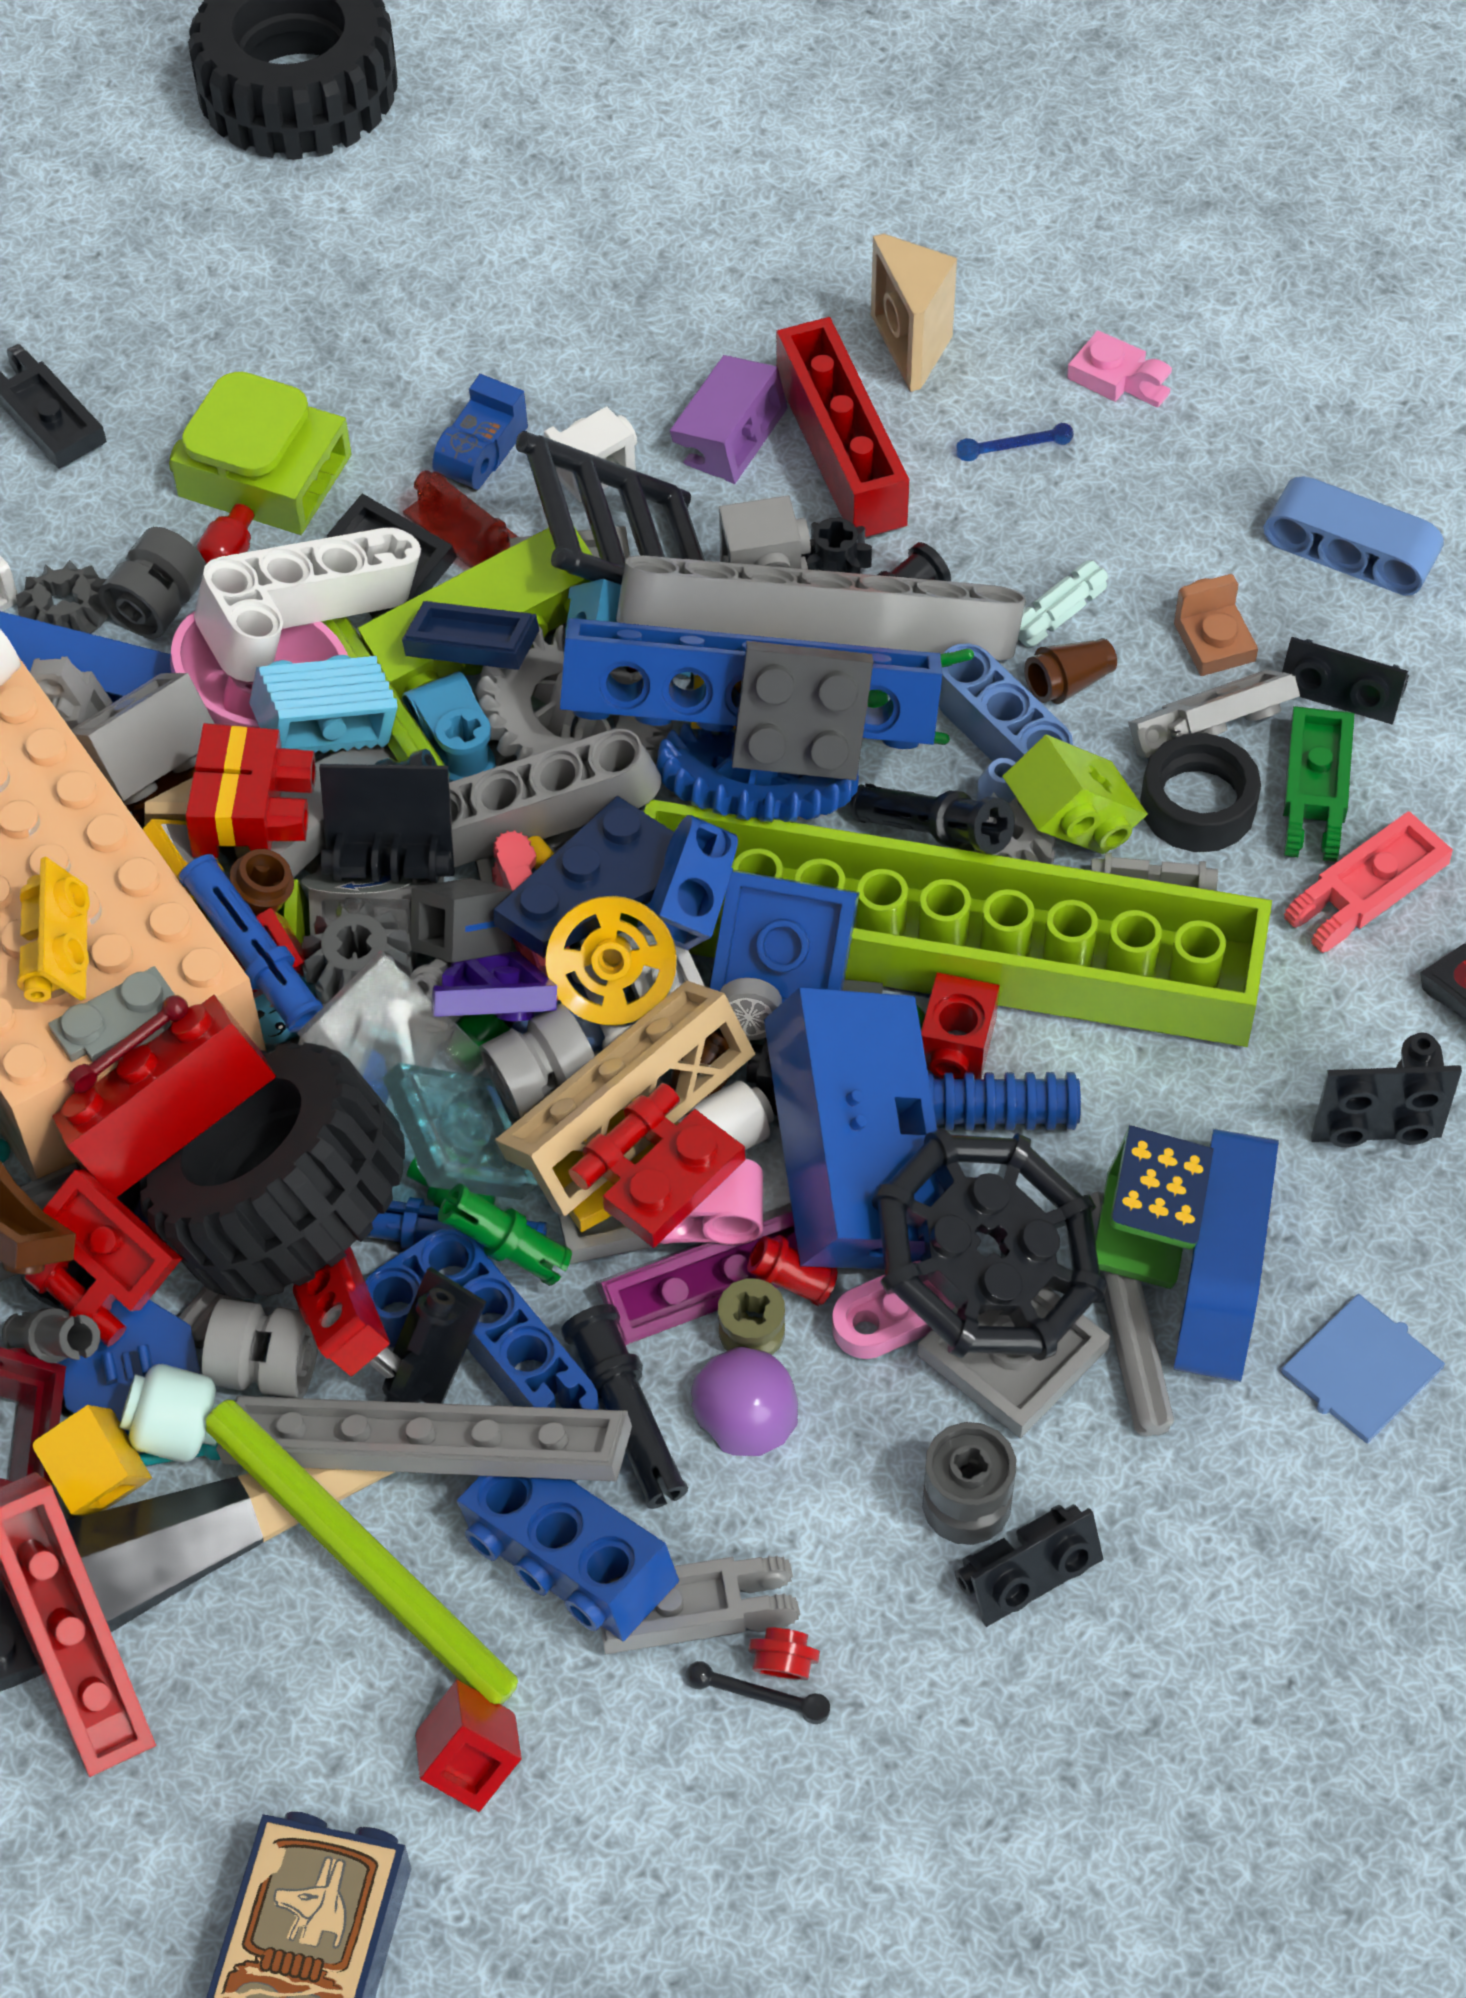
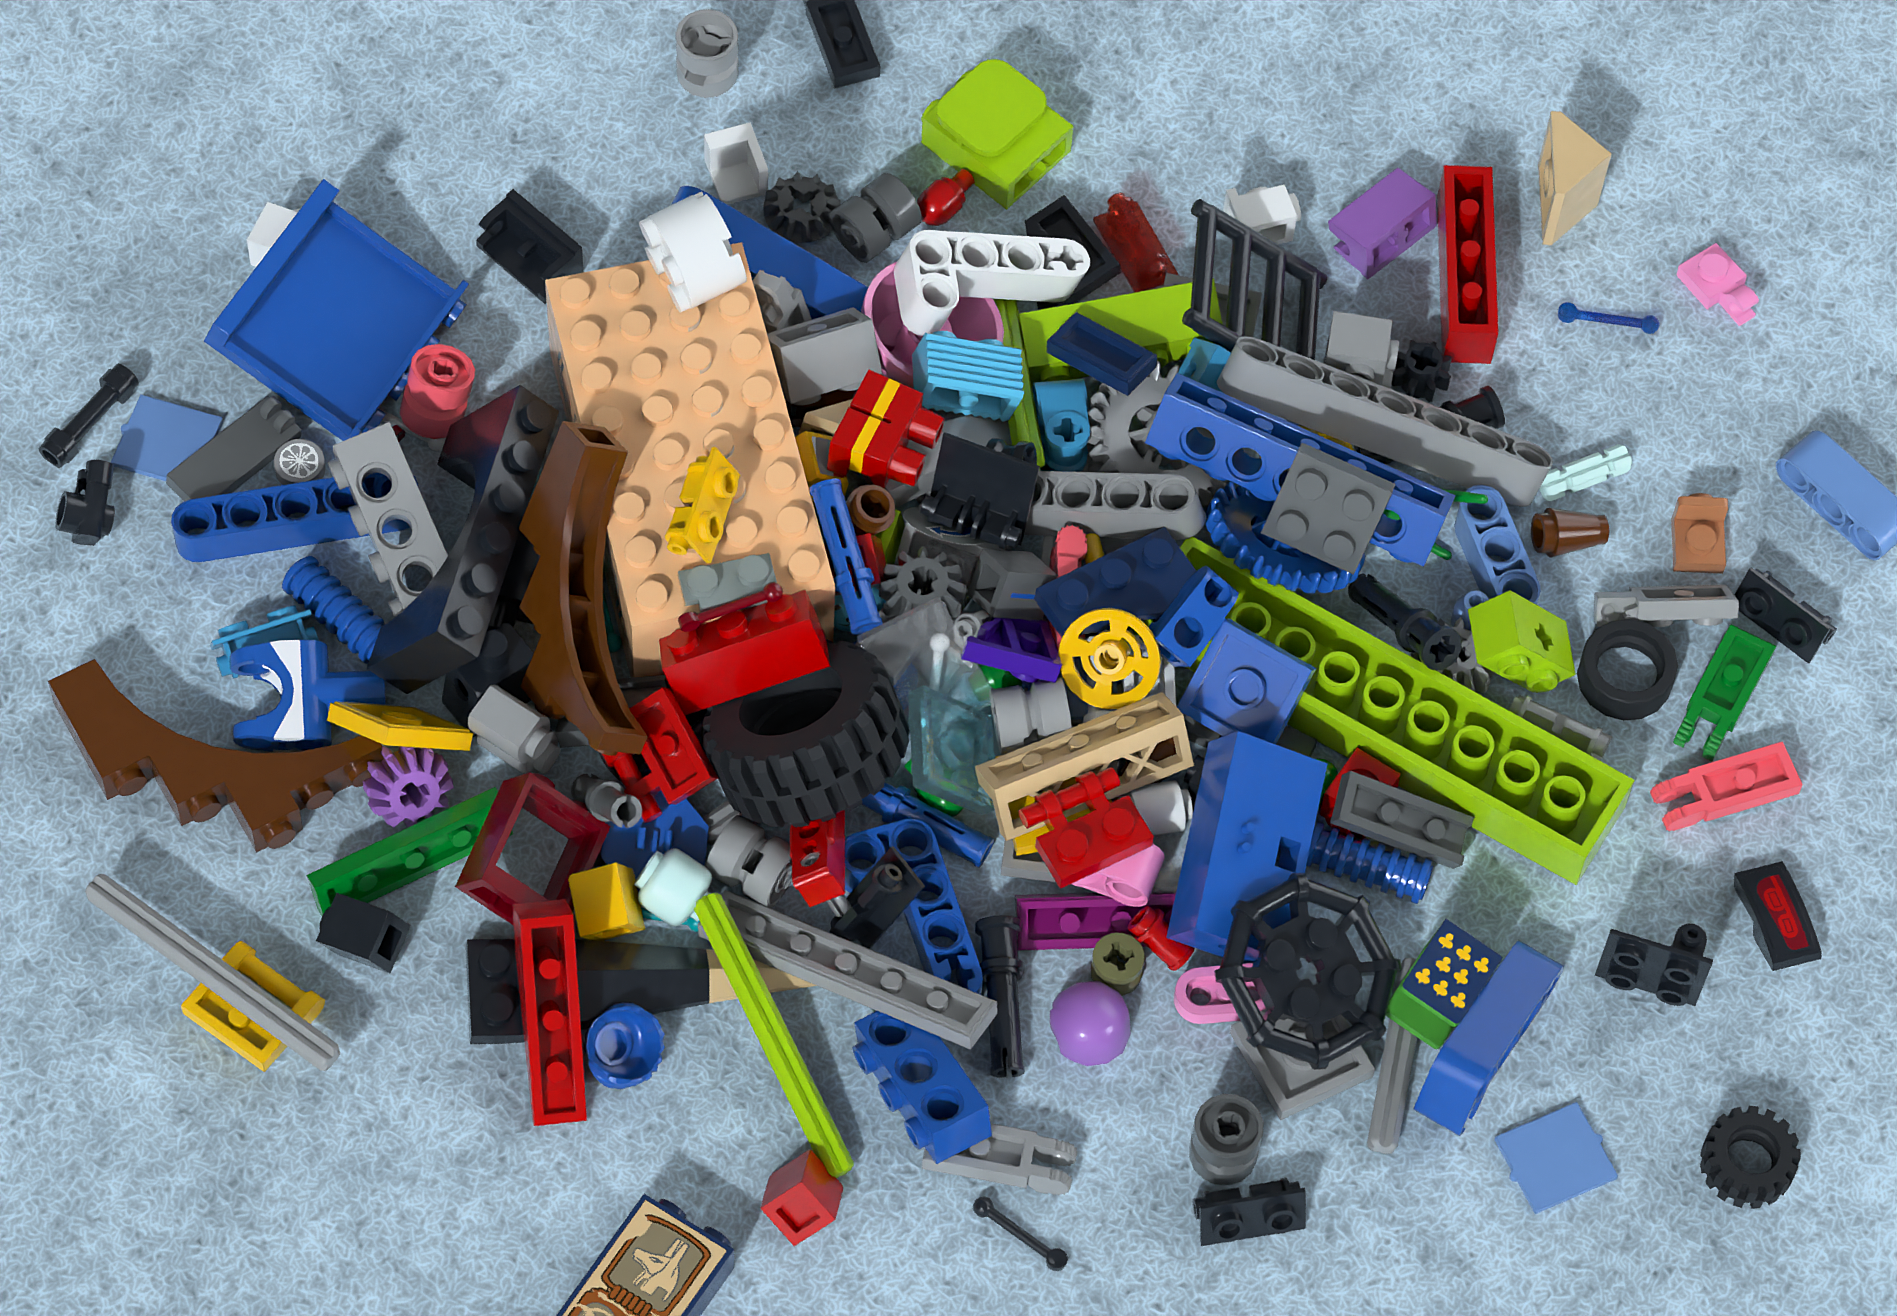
camera: 15 degrees right, 5 degrees up
(173, 1633) = (624, 1046): none -> blue hair
(481, 432) = (1178, 171): blue leg -> none
(504, 1234) = (958, 839): green pin -> none
(752, 1003) = (1203, 726): light grey tile -> none
(783, 1654) = (1047, 1213): red plate -> none
(1021, 1035) = (1401, 819): none -> dark grey hinge

